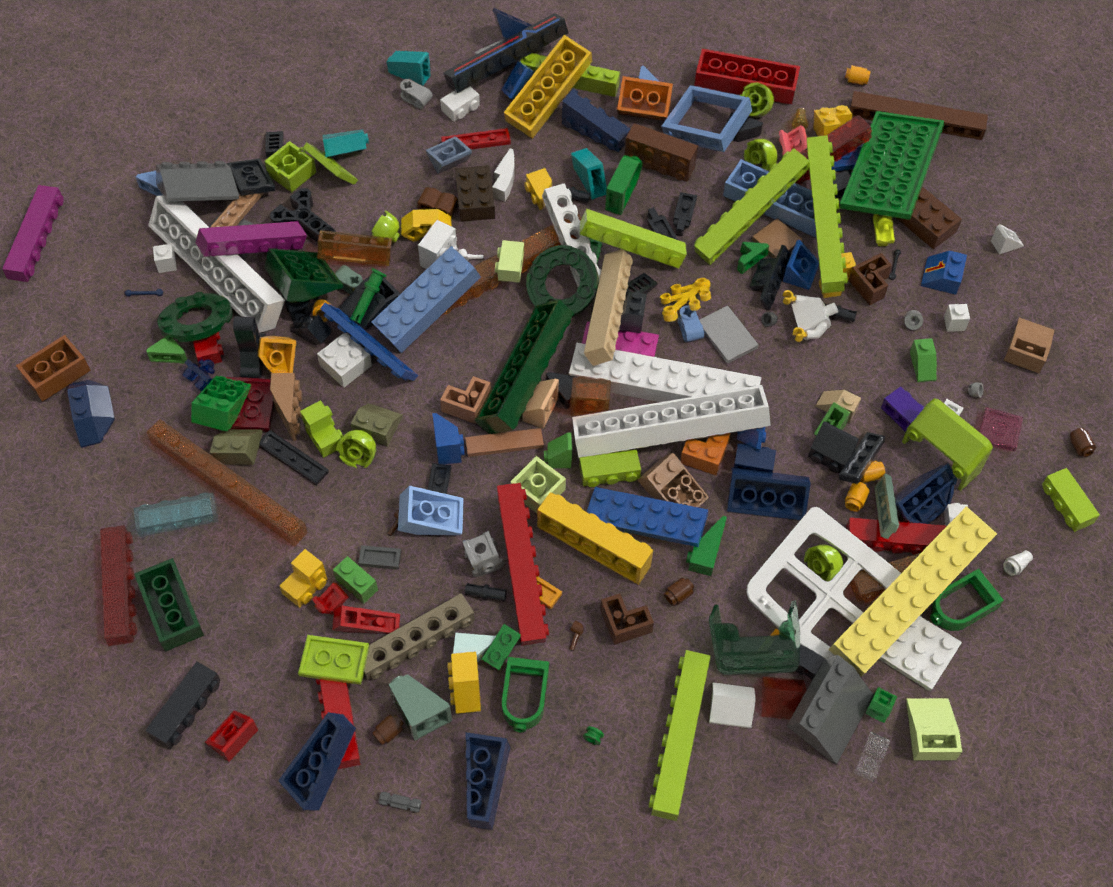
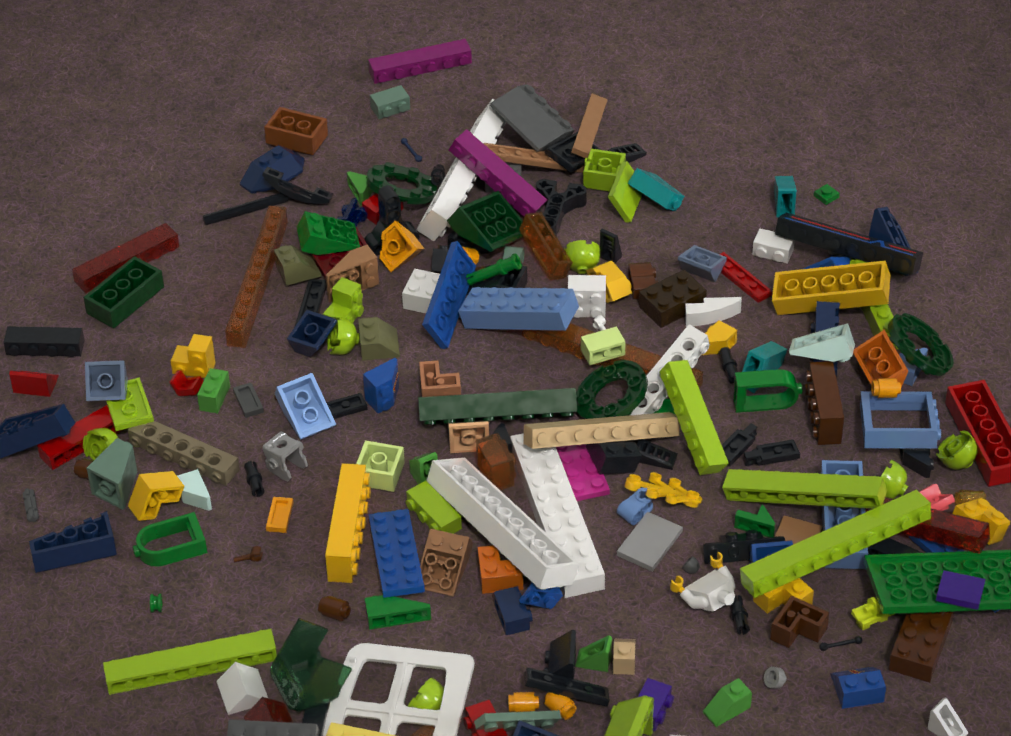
camera: 65 degrees right, 15 degrees down
(70, 279) = (390, 102): none -> sand green brick
(121, 456) = (244, 208): none -> black axle
(151, 392) = (293, 191): none -> black slope
(164, 258) = (445, 140): white brick -> none
(176, 514) = (209, 261): clear light blue brick -> none
(200, 285) = (438, 173): none -> black pin
(225, 151) = (589, 126): none -> medium nougat tile
(305, 665) = (106, 380): none -> sand blue slope
(346, 466) = (310, 332): none -> dark blue slope
(364, 620) = (178, 411): red slope -> none
(370, 705) = (97, 441): none -> lime cylinder
(389, 203) = (609, 246): none -> black slope
(416, 95) = (758, 212): light grey piece -> none
(422, 43) = (826, 194): none -> green plate
(501, 646) = (204, 503): green hinge -> none
(504, 442) = (415, 430): nougat tile -> none
(521, 564) = (288, 482): red brick -> none
(616, 118) = (825, 345): none -> light aqua slope
(625, 624) = (277, 576): reddish brown brick -> none
(652, 67) = (904, 323): none -> dark green plate
(677, 107) = (885, 388): none -> light orange brick
(768, 494) = (482, 633): dark blue slope -> none
(913, 162) = (960, 590): none -> dark purple tile
(956, 317) = (803, 711): white brick -> none

